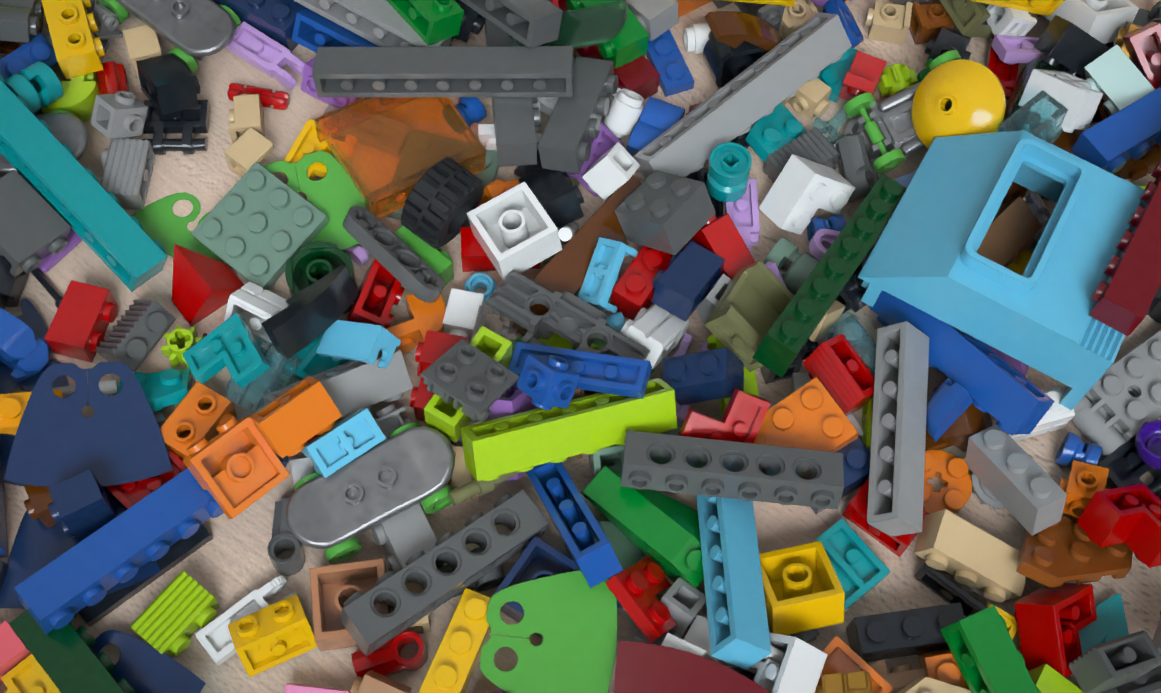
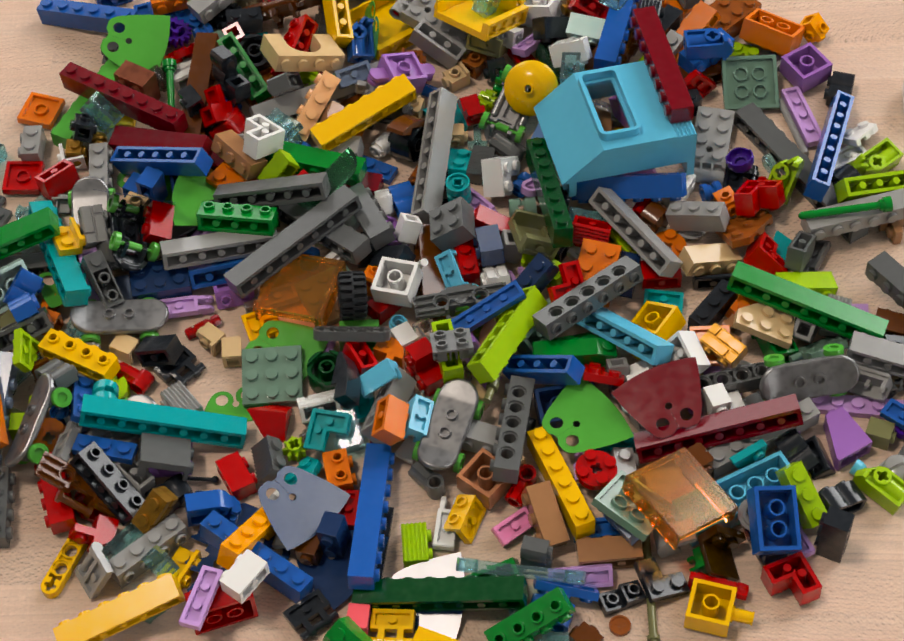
camera: 35 degrees left, 10 degrees down
(119, 115) = (155, 378): light grey brick -> none
(235, 465) = (382, 462): orange plate -> none
(548, 381) = (483, 319): blue brick -> none
(946, 407) = (645, 209): blue brick -> none

